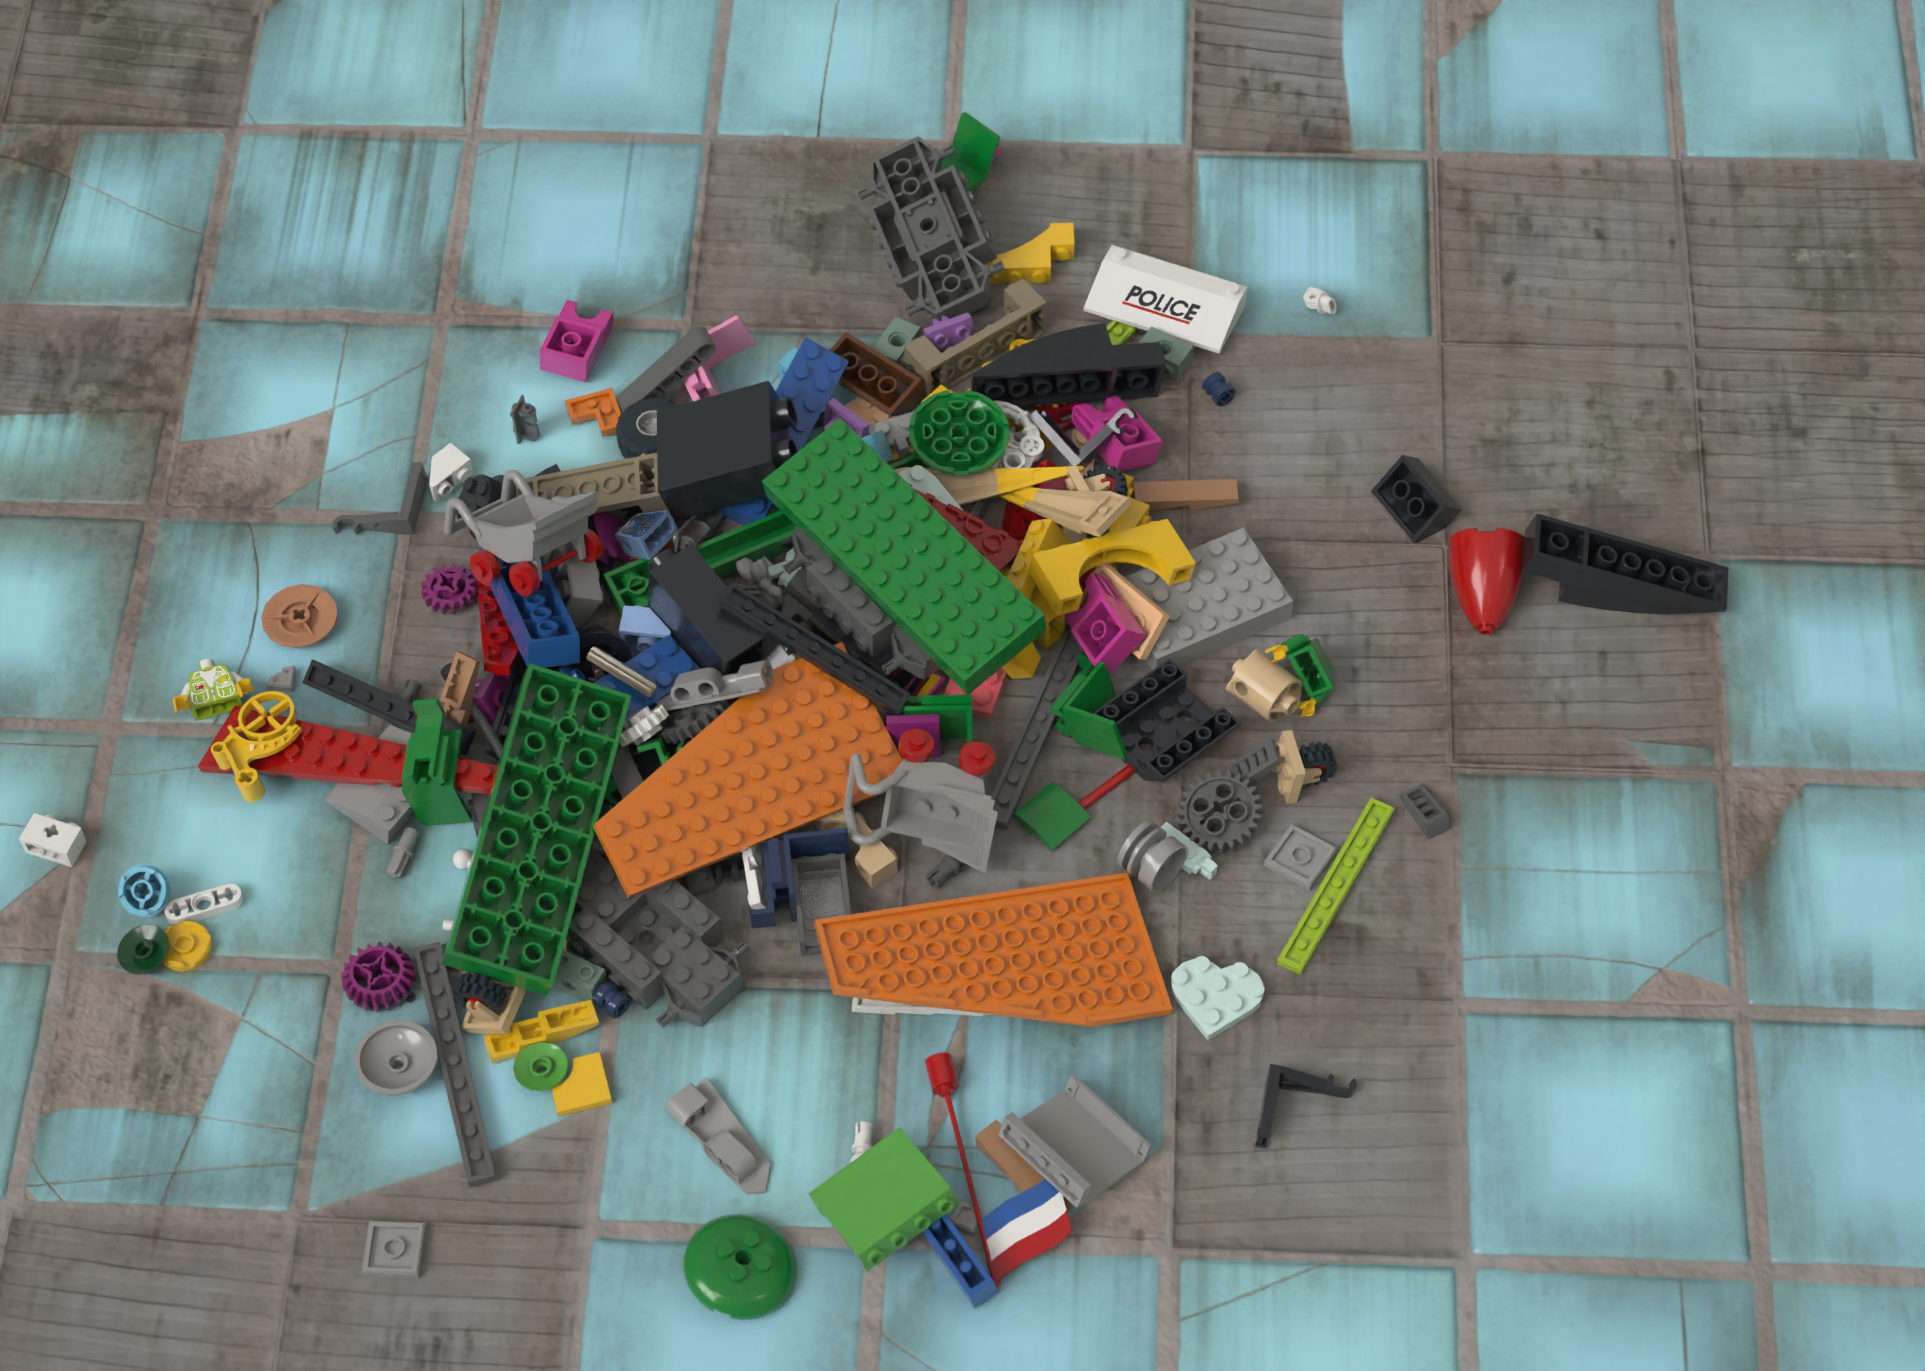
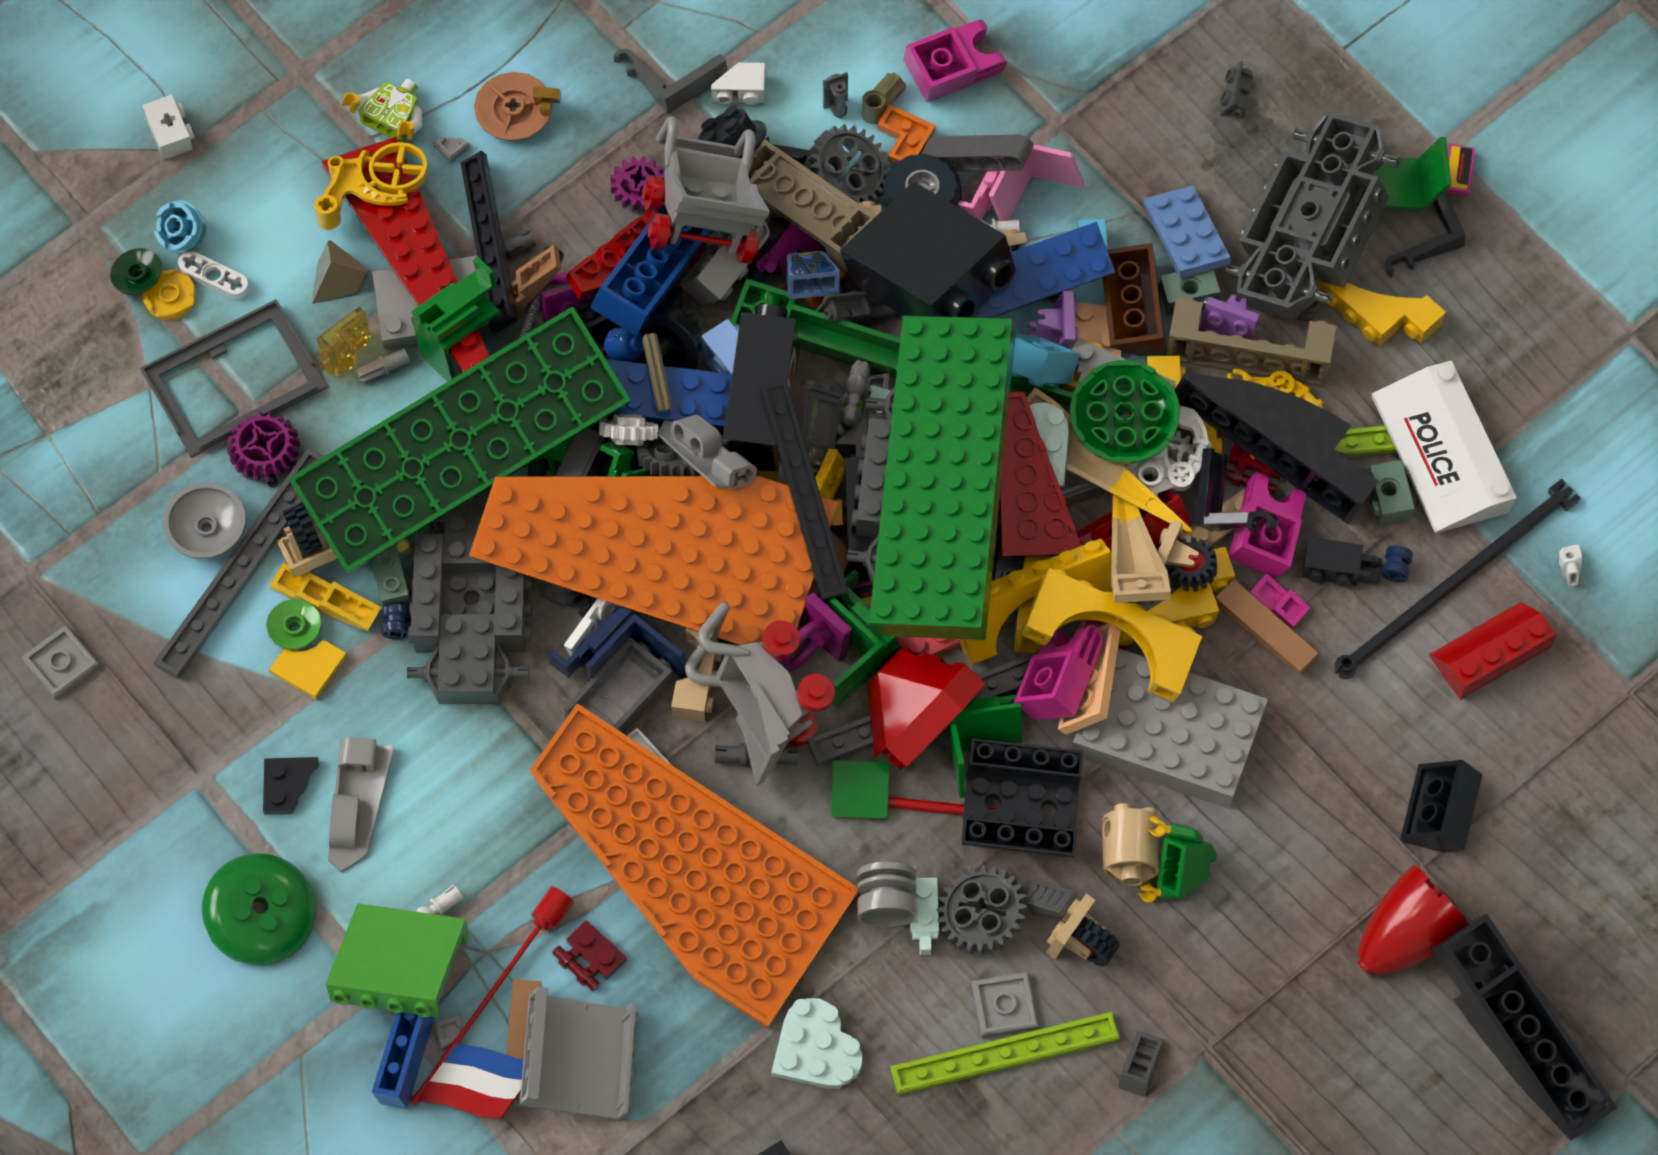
camera: 45 degrees right, 10 degrees up
(257, 948) = (214, 345): none -> dark grey door
(297, 825) = (337, 274): none -> dark tan slope
(321, 587) = (546, 97): none -> pearl gold tile
(360, 859) = (340, 341): none -> clear yellow plate
(554, 402) = (881, 96): none -> olive piece
(566, 448) = (829, 150): none -> dark grey gear
(656, 1173) = (285, 782): none -> black wing
(780, 212) = (1236, 80): none -> dark grey hinge
(854, 313) = (1186, 231): none -> medium blue plate
(1001, 1074) = (595, 949): none -> dark red plate
(1021, 182) = (1450, 240): none -> black hinge
(1031, 724) = (915, 701): none -> red panel
(1178, 471) = (1282, 603): none -> dark pink slope
(1183, 419) = (1338, 563): none -> black hinge
(1262, 376) = (1459, 577): none -> black hinge
(1333, 385) = (1493, 649): none -> red slope

